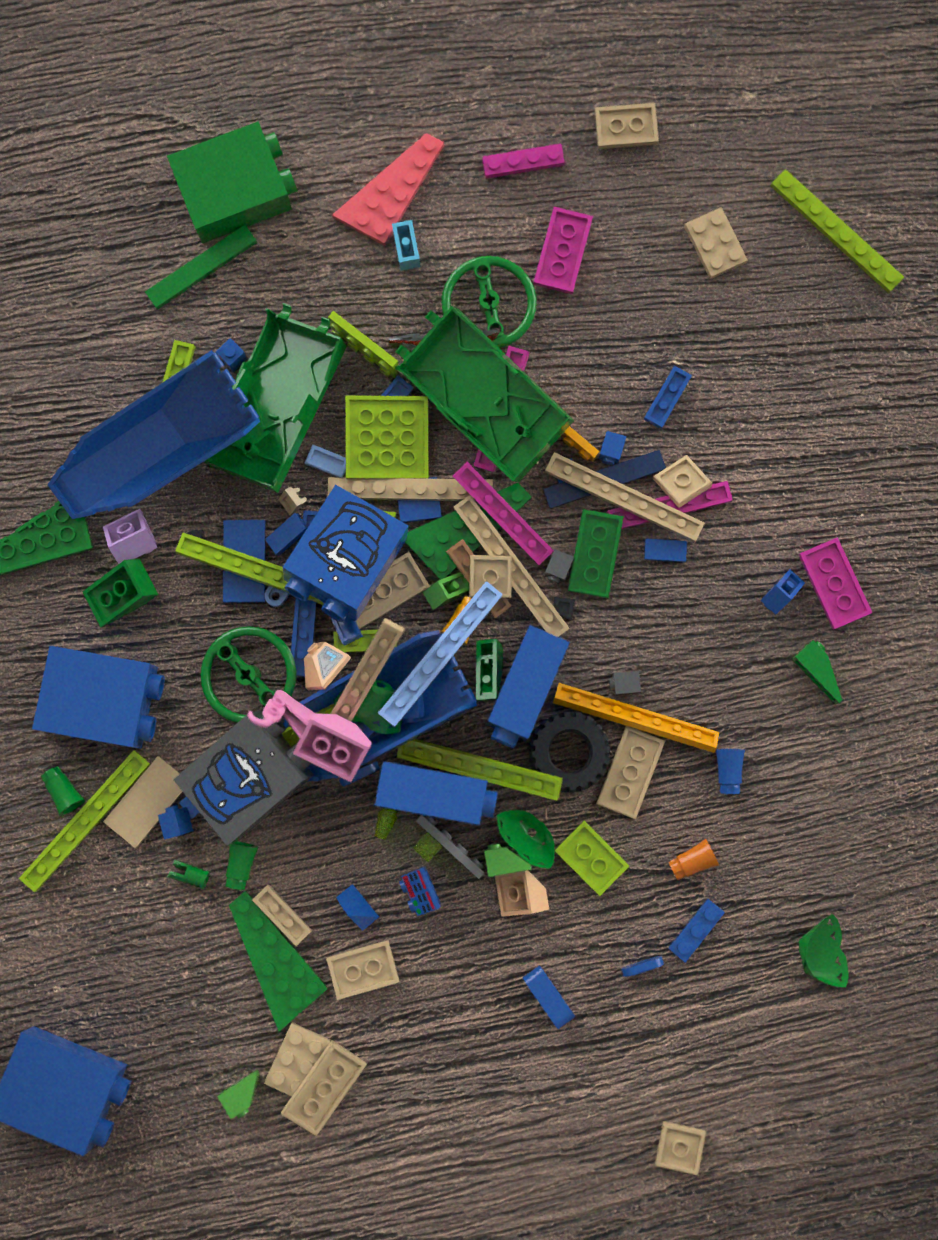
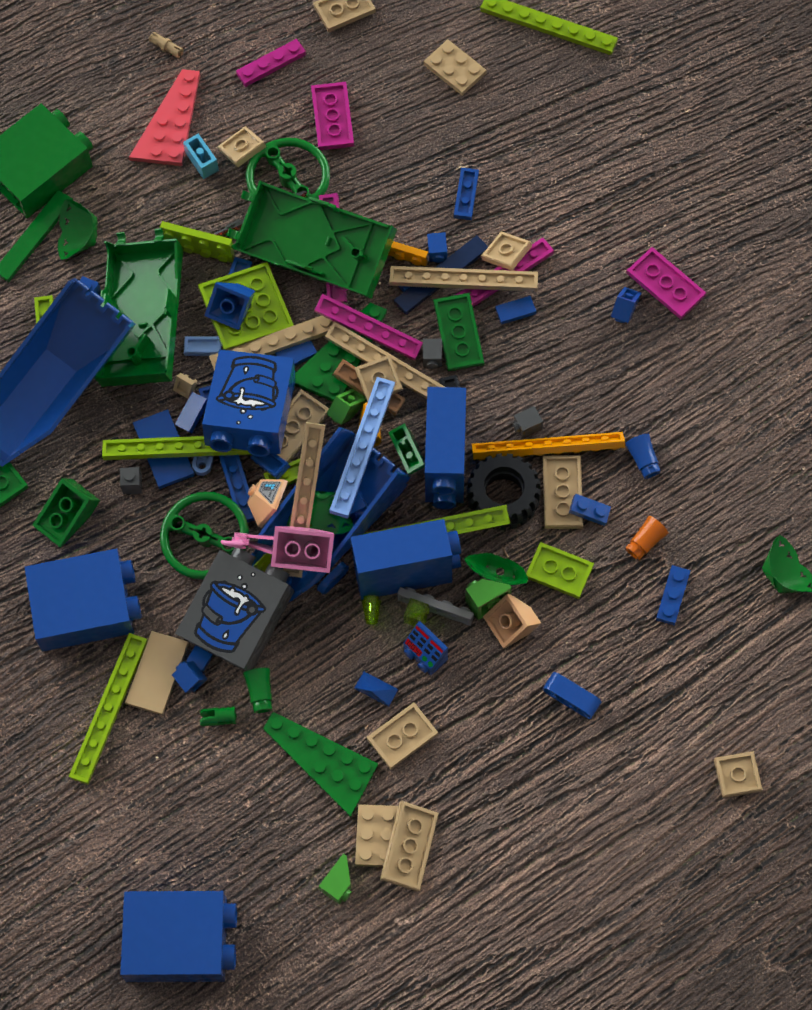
camera: 20 degrees left, 15 degrees down
(62, 791) = (79, 690): green plant -> none
(129, 537) = (57, 463): lavender slope -> none
(197, 585) = (131, 480): none -> dark grey brick
(249, 280) = (79, 232): none -> green piece
(282, 915) = (313, 718): tan plate -> none
(369, 432) = (229, 303): none -> blue slope
(420, 97) = (166, 45): none -> tan pin
(453, 249) = (241, 146): none -> tan tile
(642, 966) = (640, 639): blue tile -> none
(649, 805) = (589, 509): none -> blue plate
(817, 667) = (680, 351): green slope -> none

